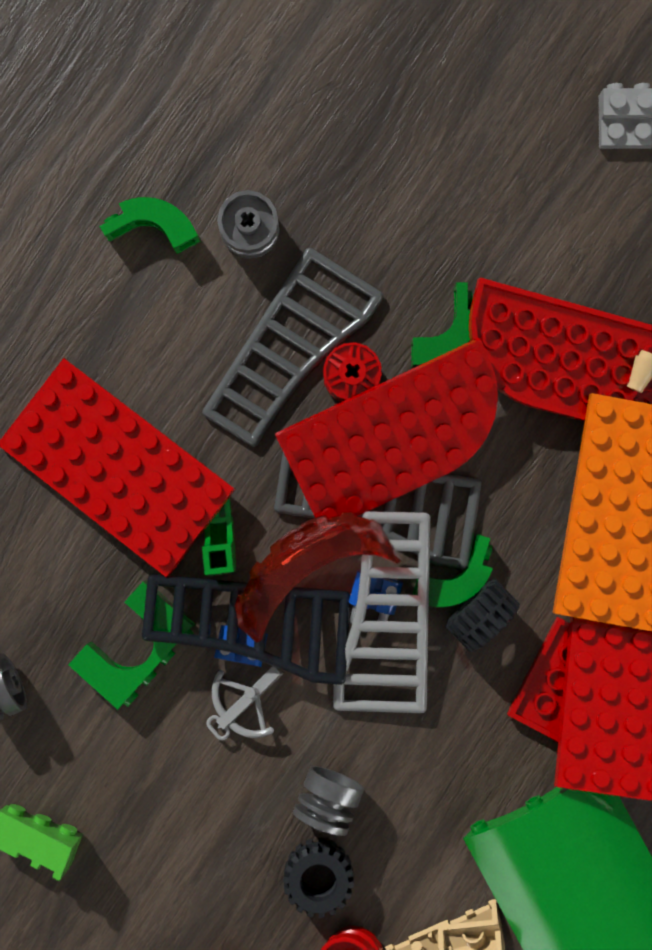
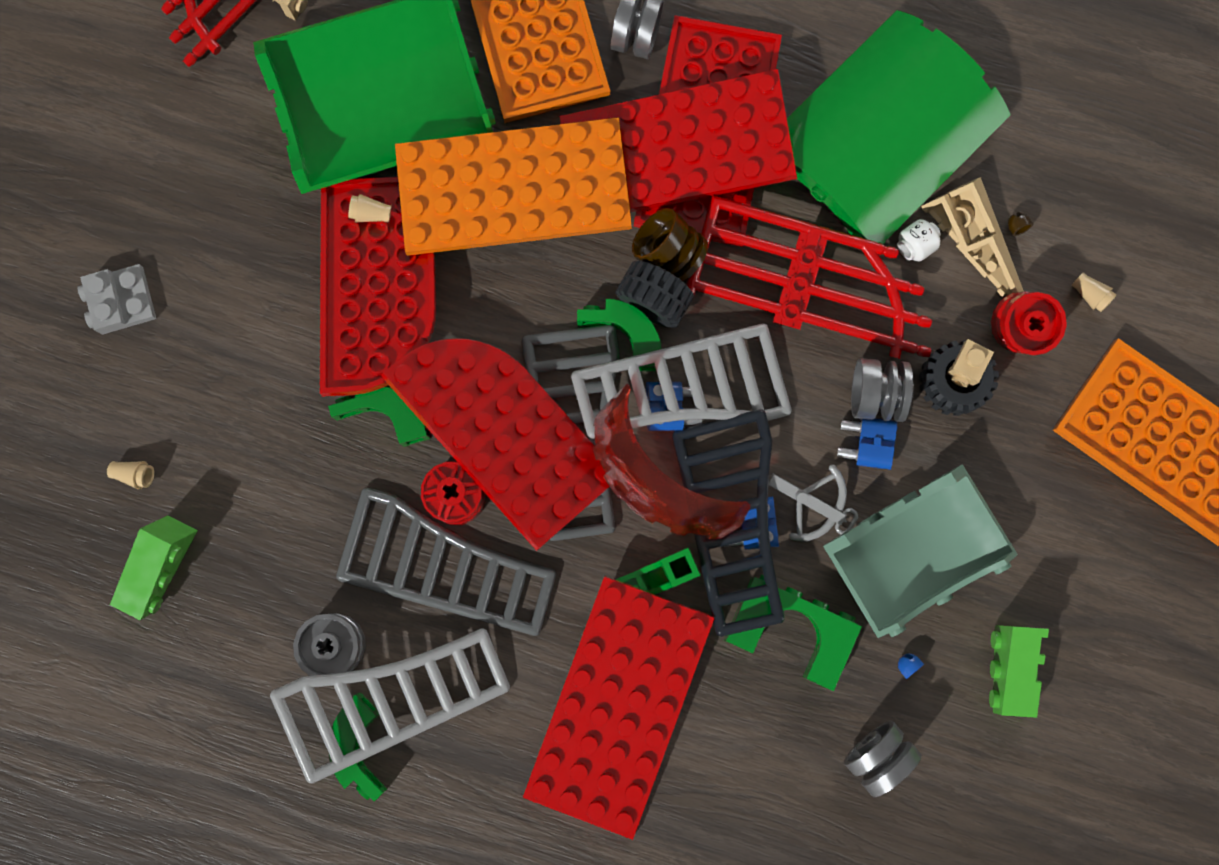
camera: 105 degrees left, 5 degrees down
(71, 742) = (909, 664): none -> blue hinge
(169, 787) = (920, 551): none -> sand green panel
(208, 253) = (371, 676): none -> light grey bar
(281, 778) = (875, 442): none -> blue piece
(326, 892) = (969, 364): none -> tan bracket
(368, 86) = (152, 566): none -> bright green wedge
(454, 756) = (802, 273): none -> red piece
(458, 91) = (134, 474): none -> tan cone
(461, 885) = (919, 240): none -> white head
(525, 644) = (670, 244): none -> dark brown wheel

